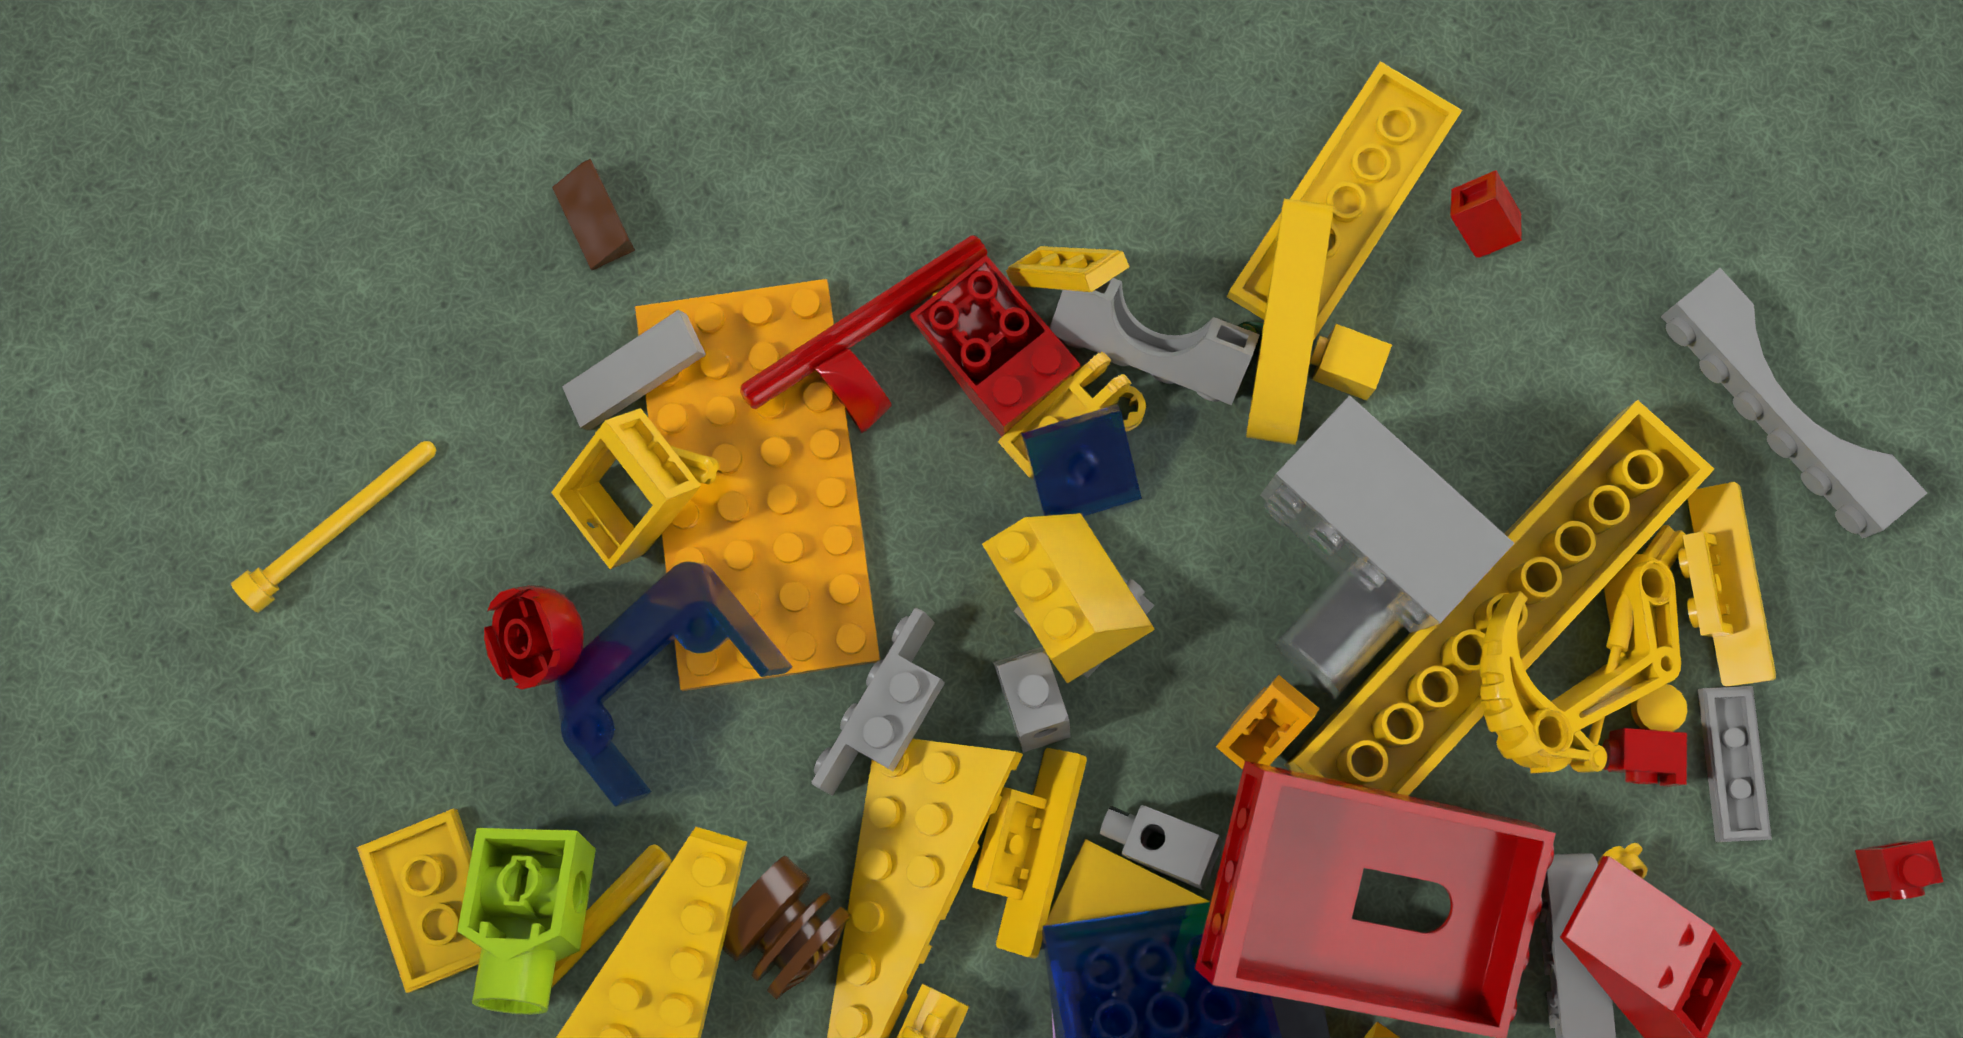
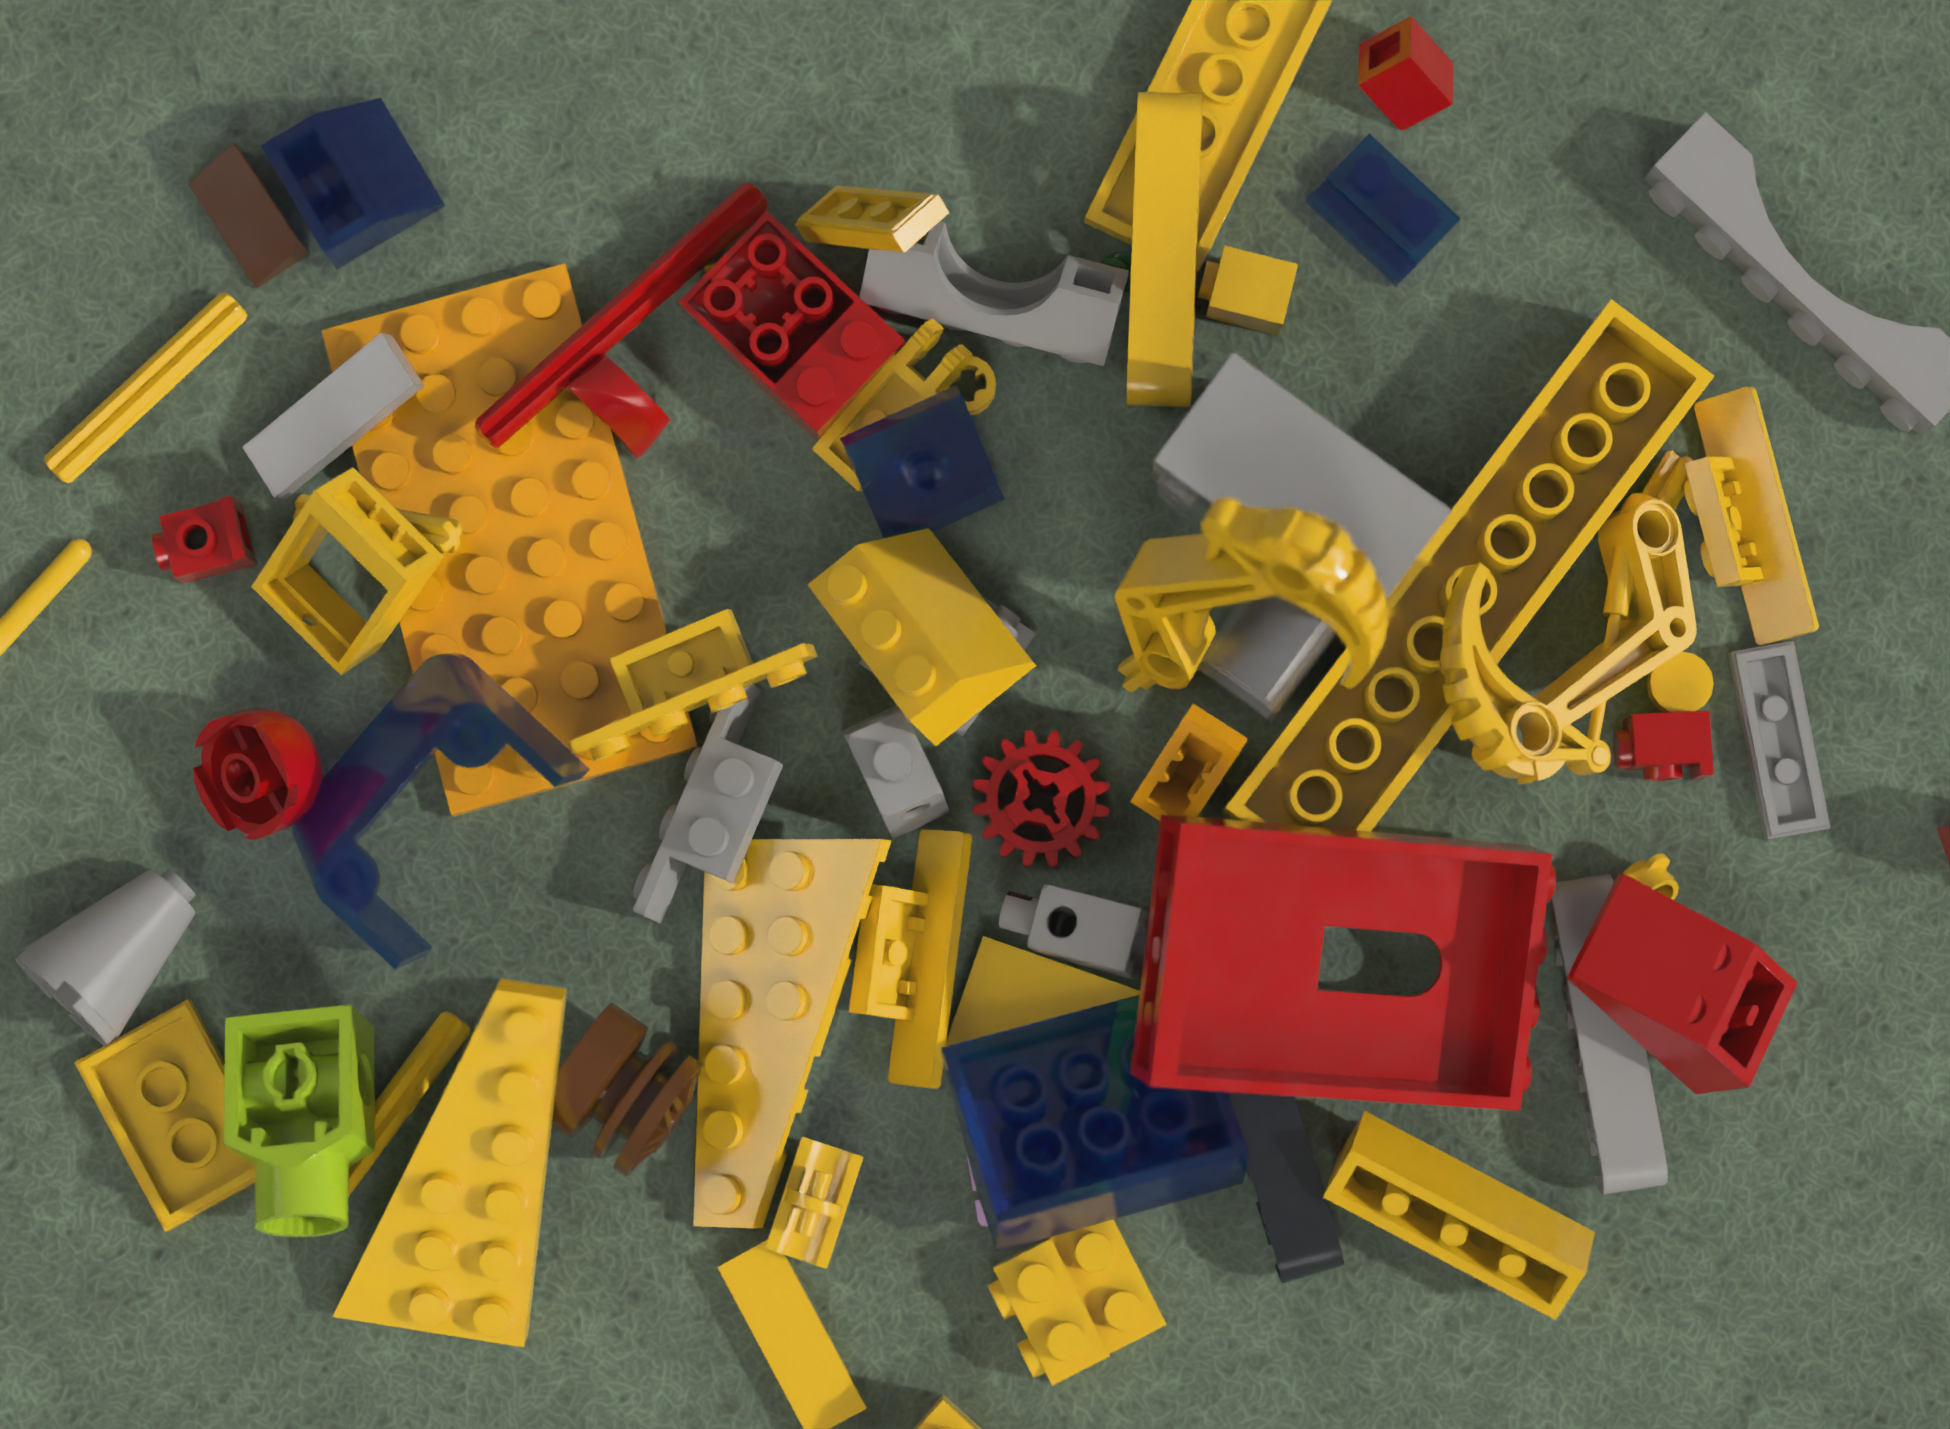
camera: 10 degrees left, 5 degrees up
(398, 763) = (111, 952): none -> light grey cone
(495, 333) = (145, 387): none -> yellow axle
(535, 463) = (226, 547): none -> red brick
(674, 195) = (352, 178): none -> clear blue slope
(875, 600) = (685, 672): none -> yellow bracket
(1133, 712) = (1064, 782): none -> red gear
(1341, 560) = (1239, 559): none -> yellow piece
(1457, 315) = (1382, 210): none -> clear blue plate

